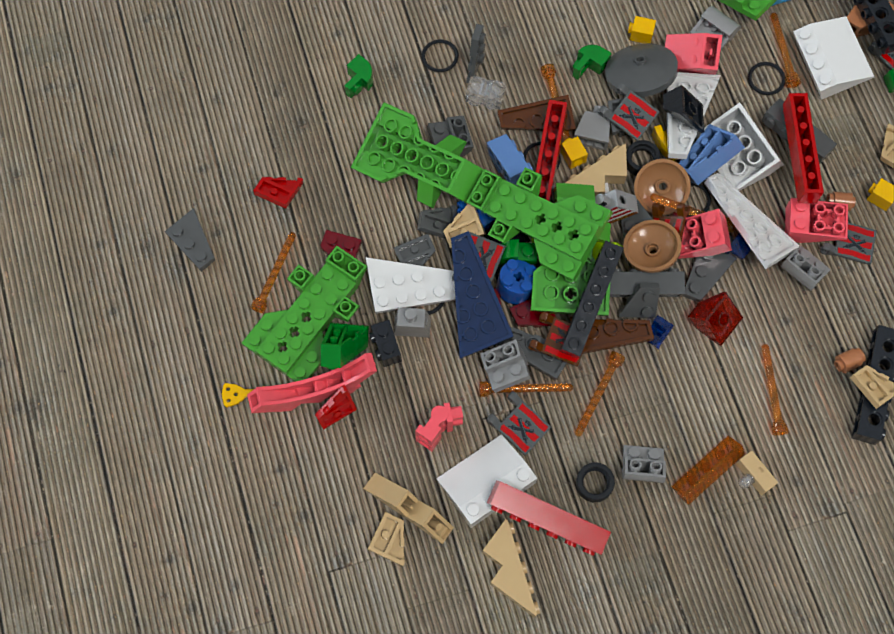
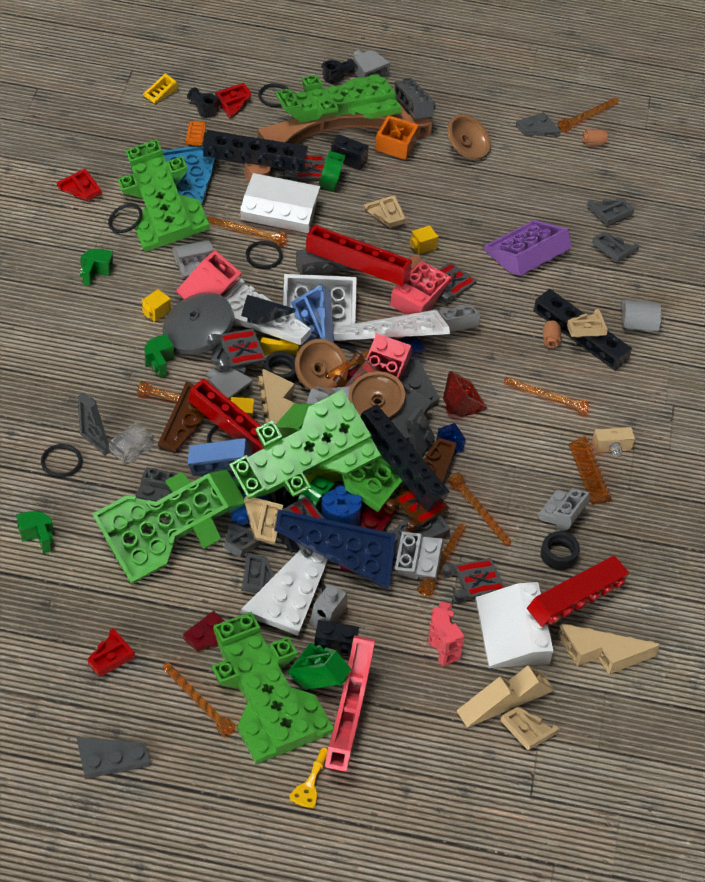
camera: 70 degrees left, 20 degrees down
(336, 408) = (377, 706): red wing -> none

